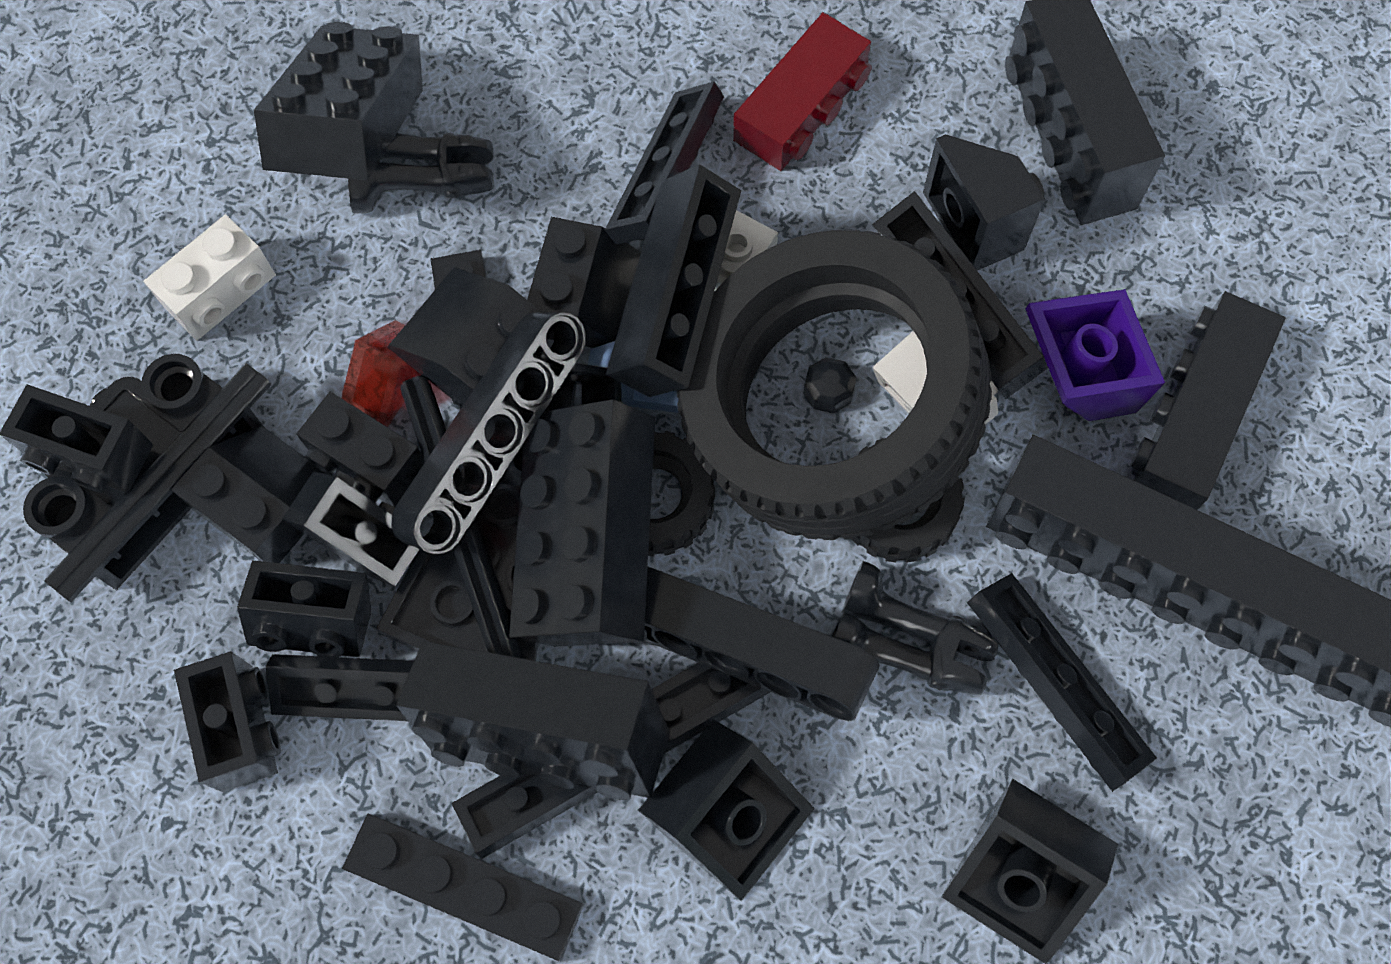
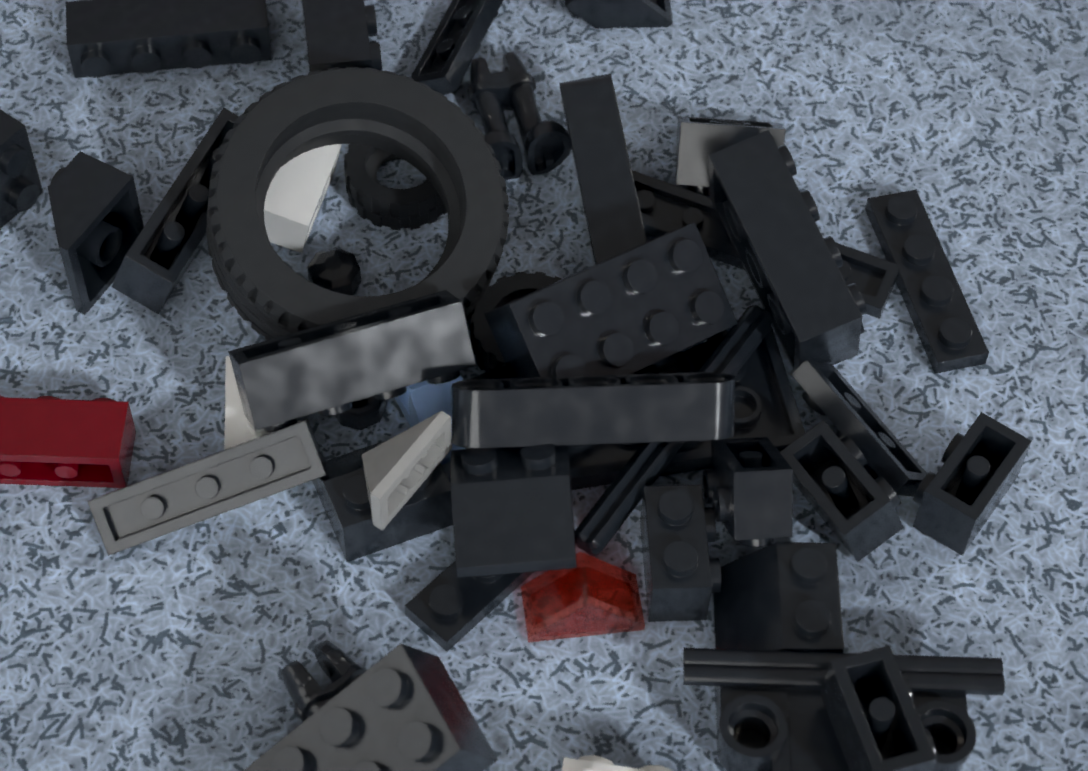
camera: 130 degrees left, 15 degrees down
(556, 258) = (403, 464): none -> light grey slope
(1096, 353) = (183, 93): dark purple slope -> none

